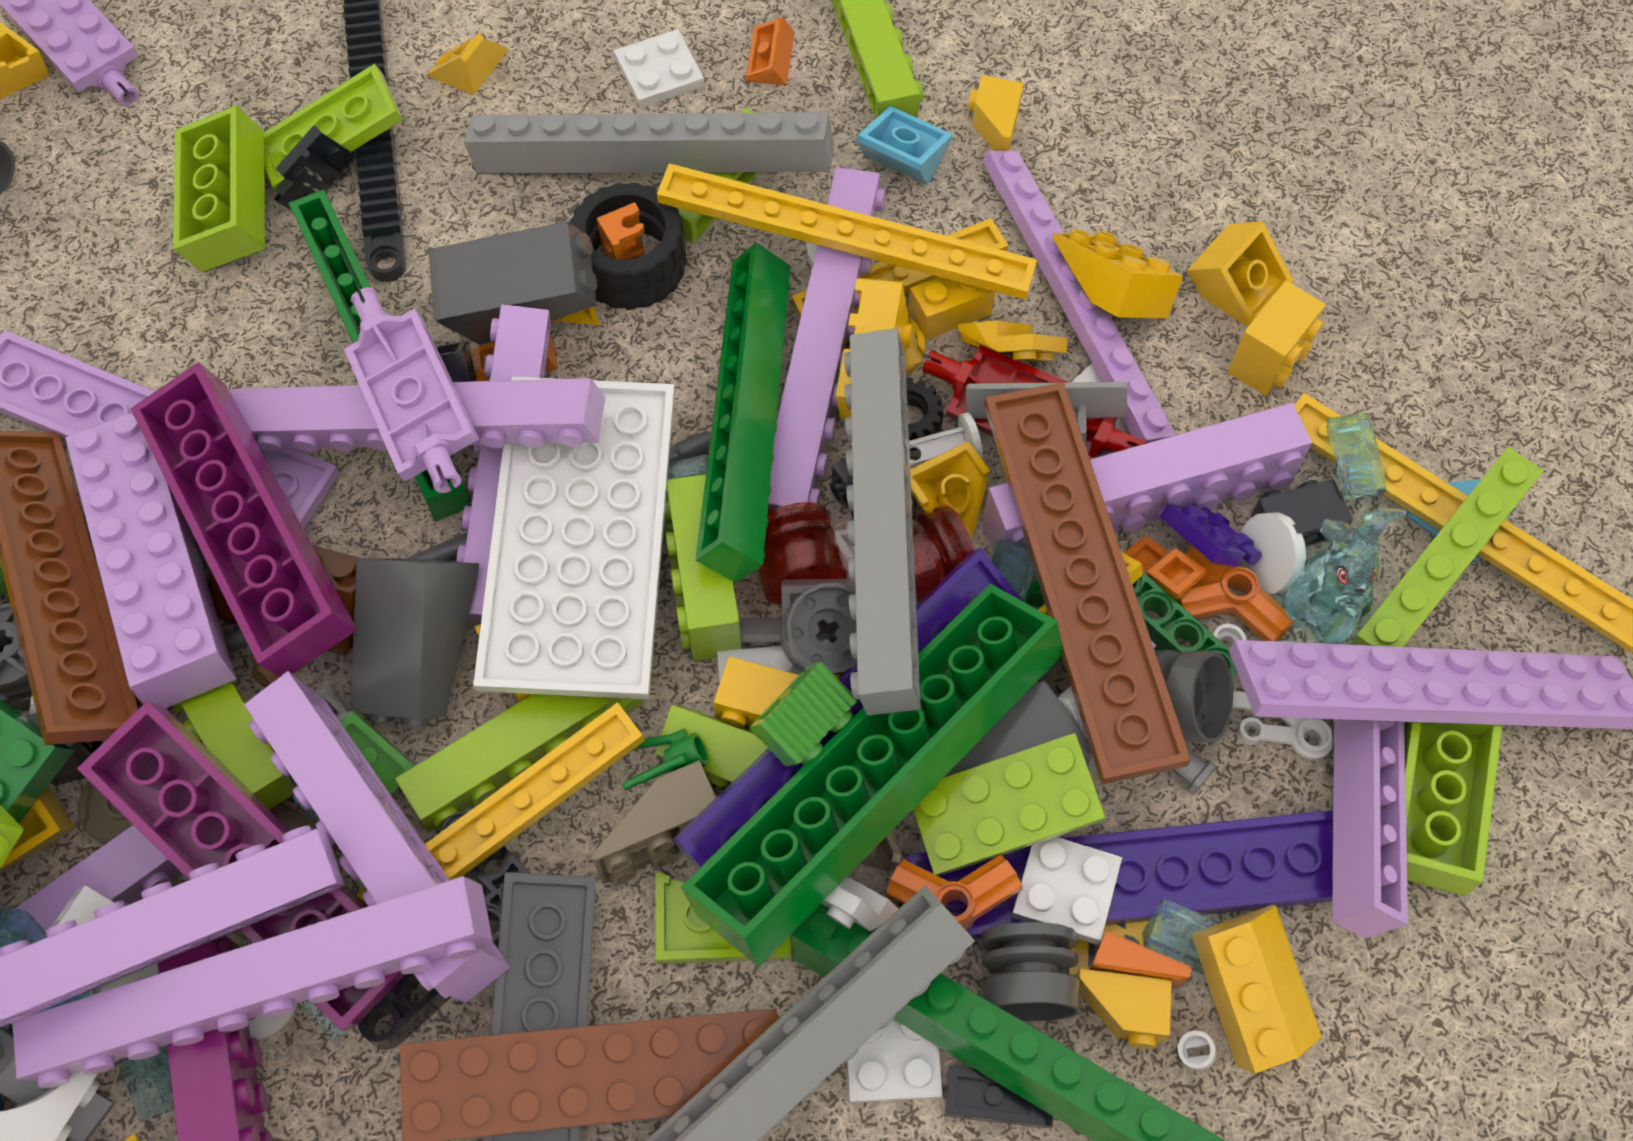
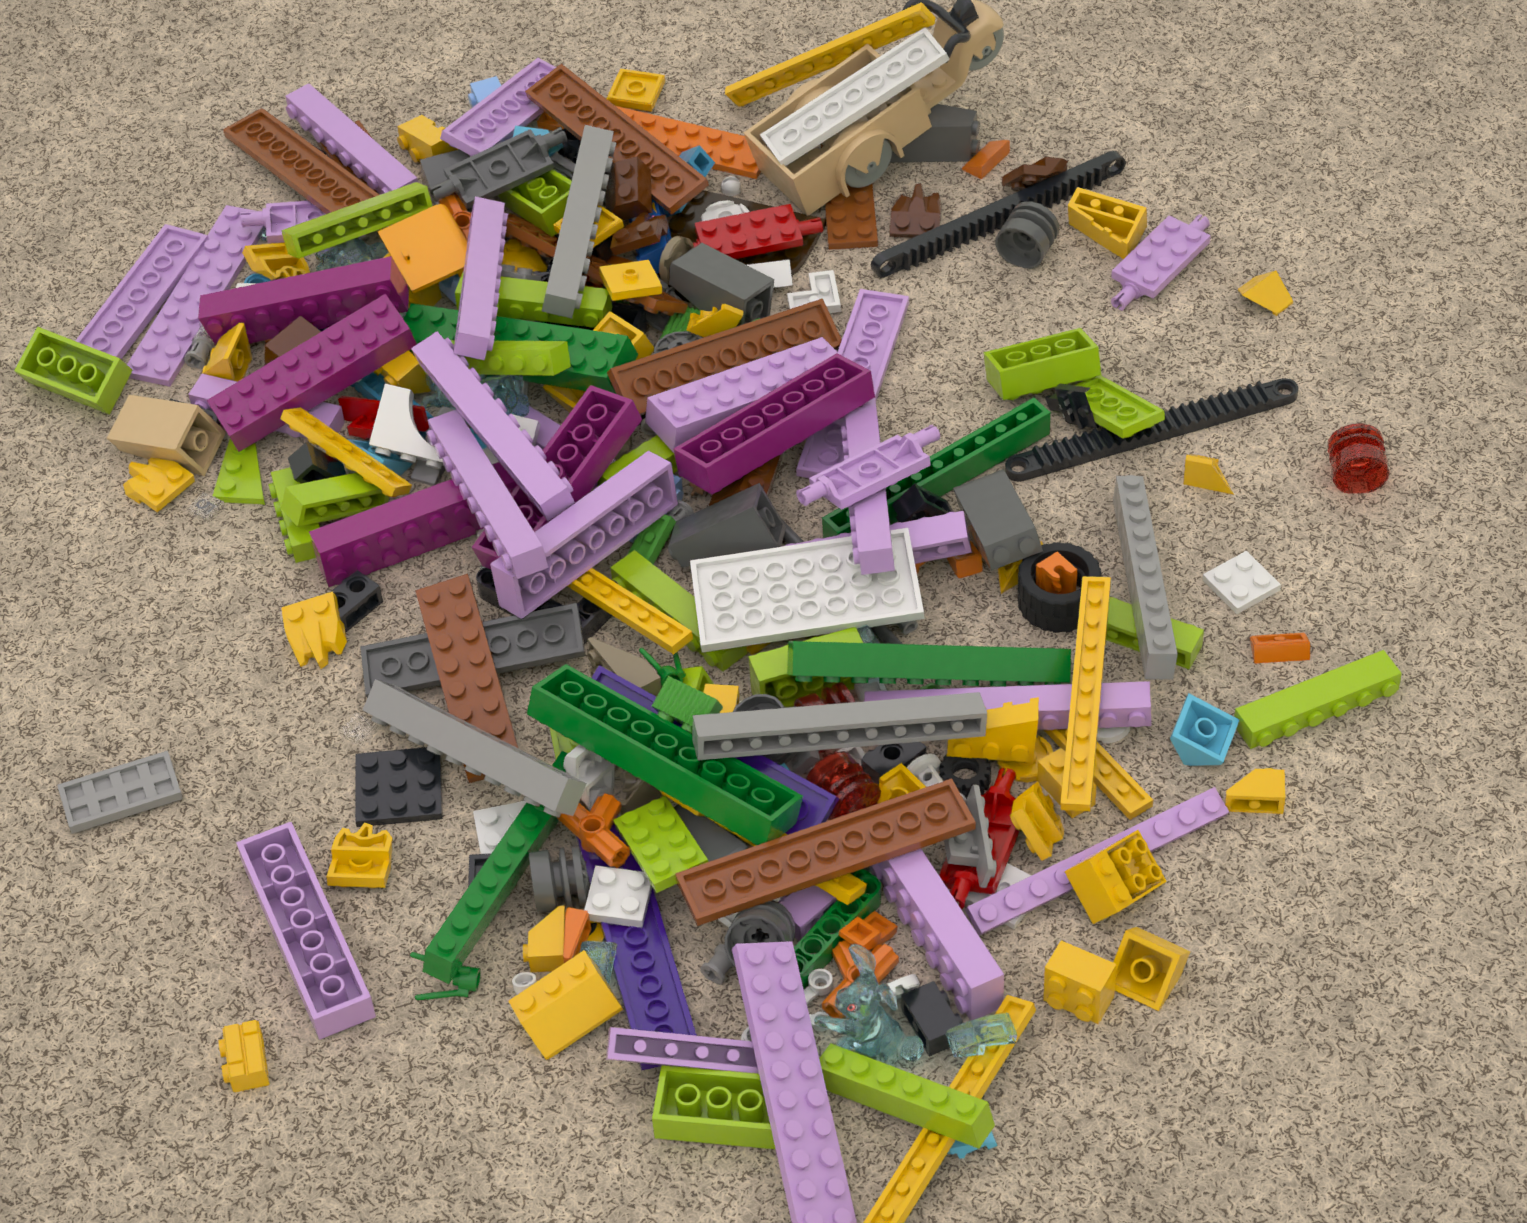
camera: 85 degrees right, 15 degrees down
(1211, 534) = (896, 942): dark purple plate -> none

